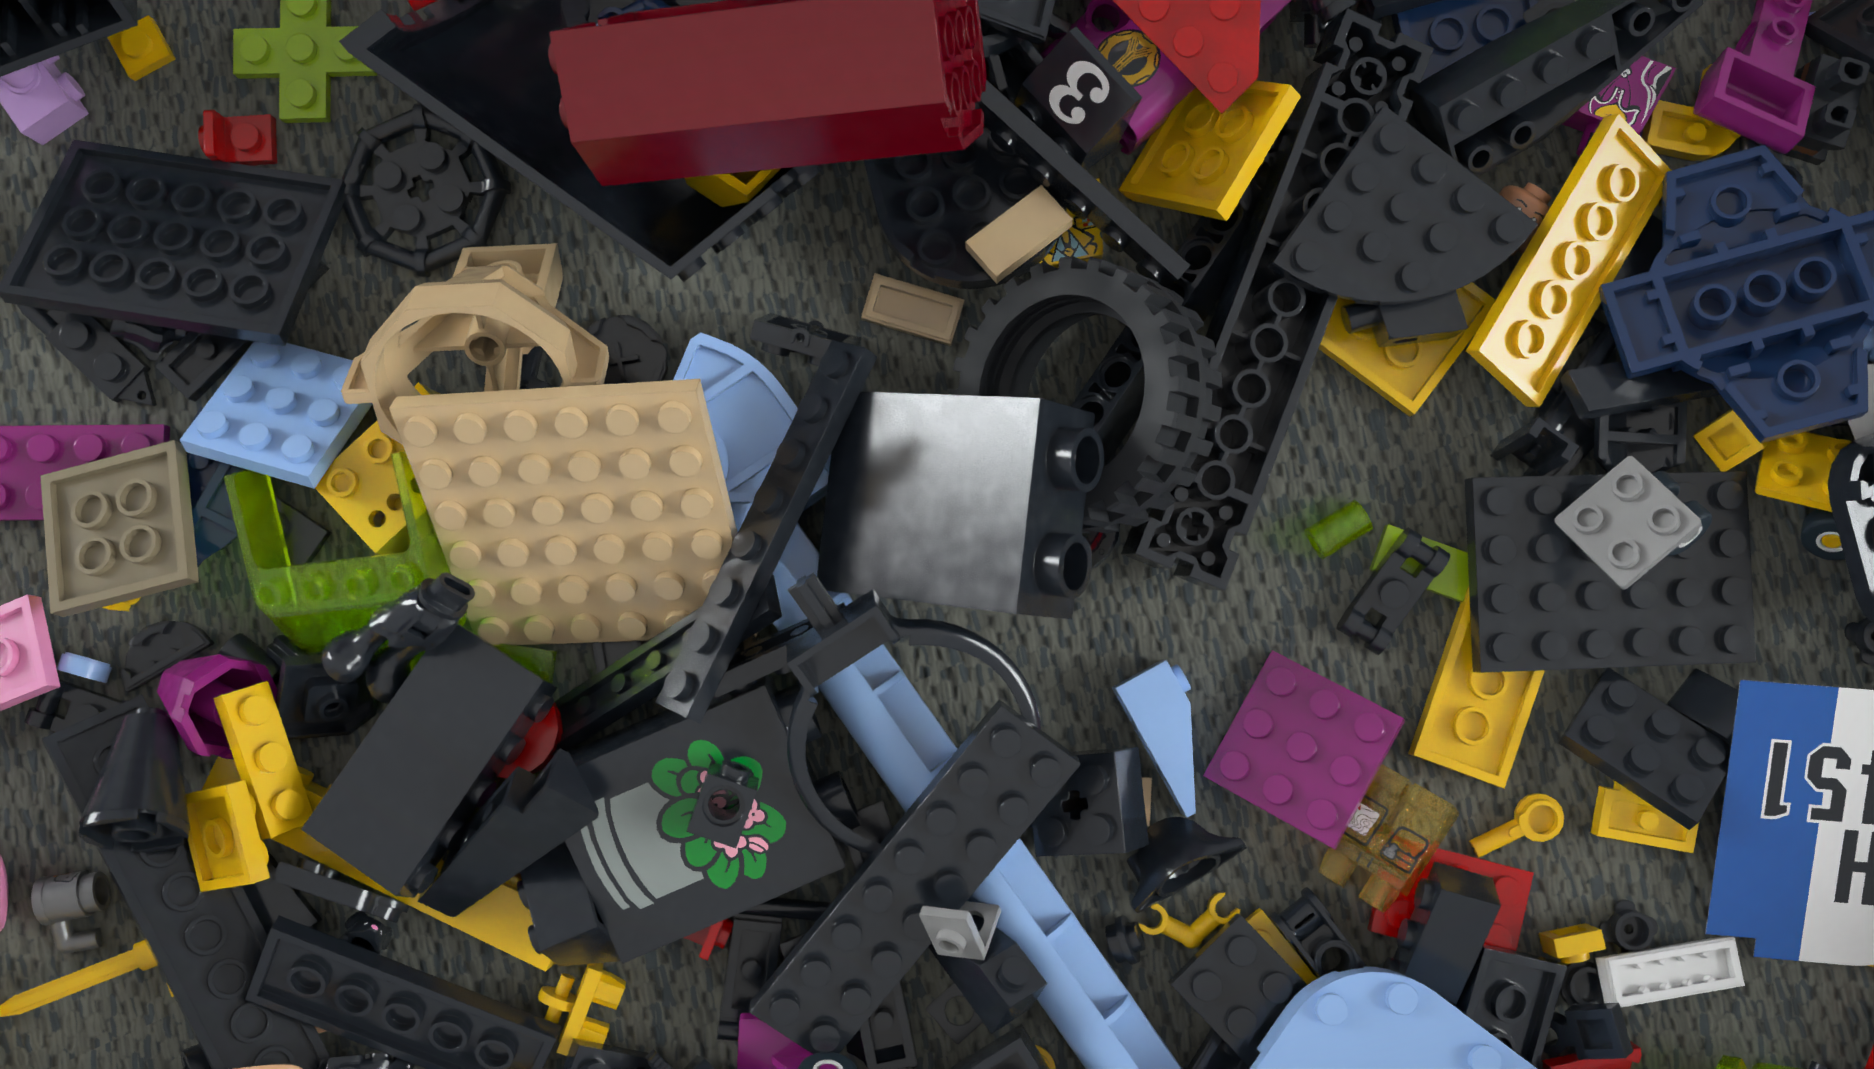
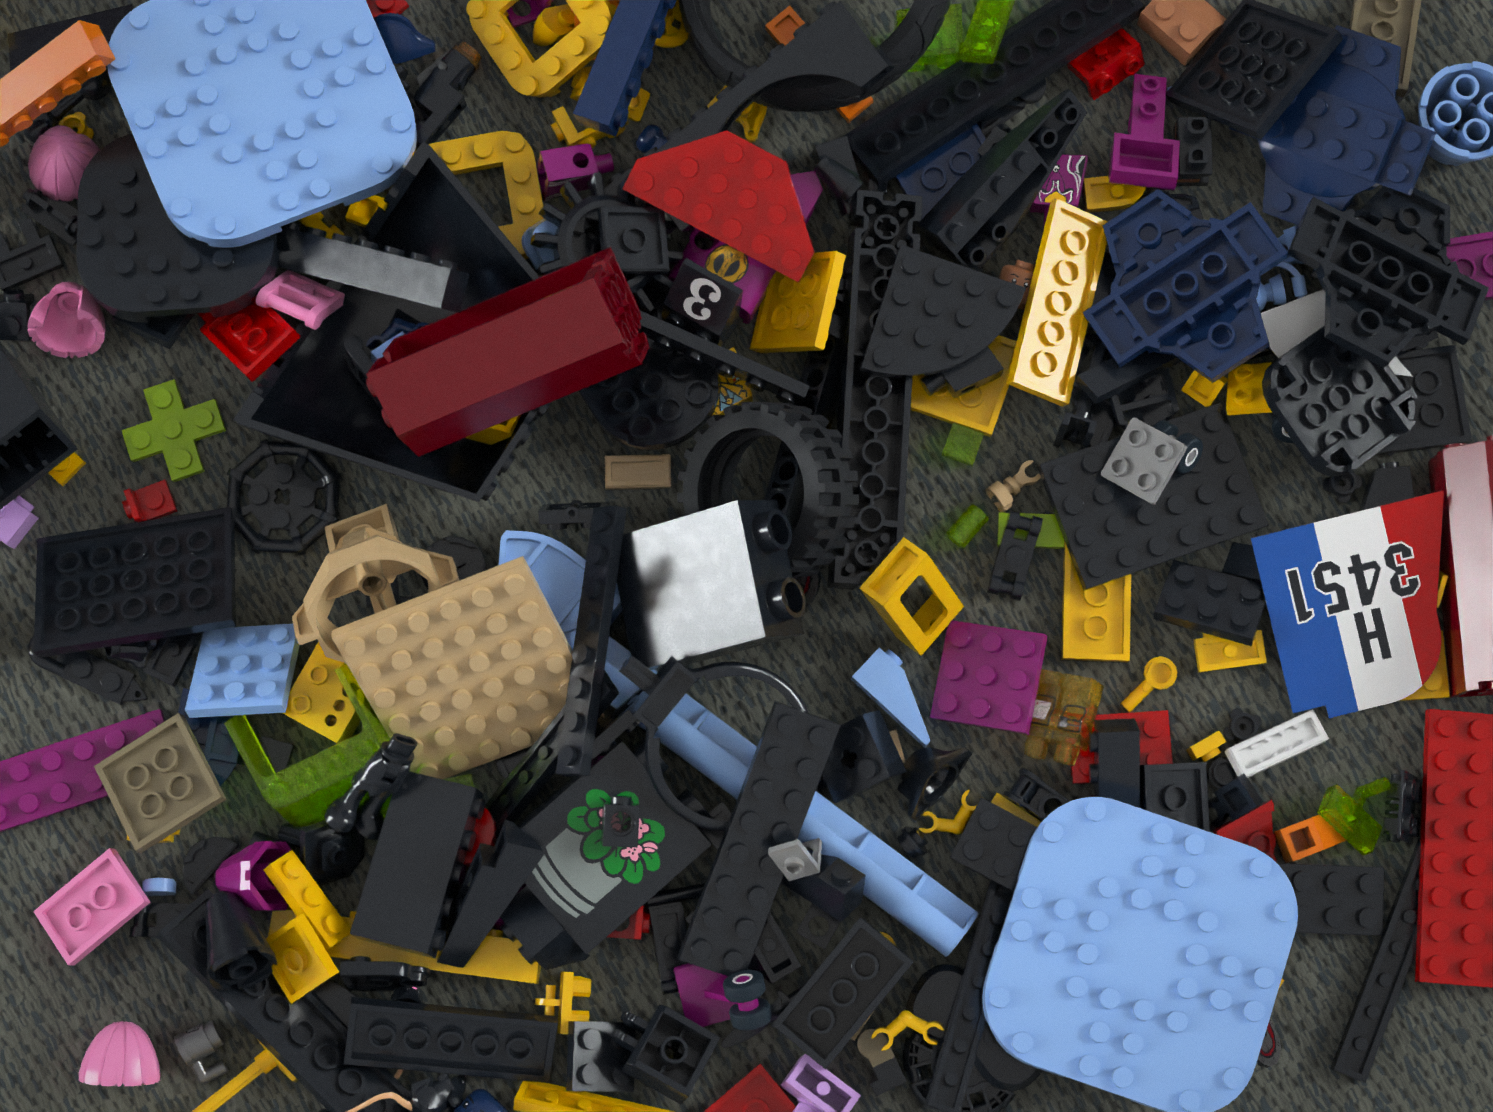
camera: 15 degrees left, 5 degrees down
(1018, 234) = (692, 400): tan tile -> none
(1207, 594) = (892, 579): none -> yellow piece
(1369, 414) = (962, 444): none -> clear neon green plate
(1415, 495) = (1011, 486): none -> tan piece

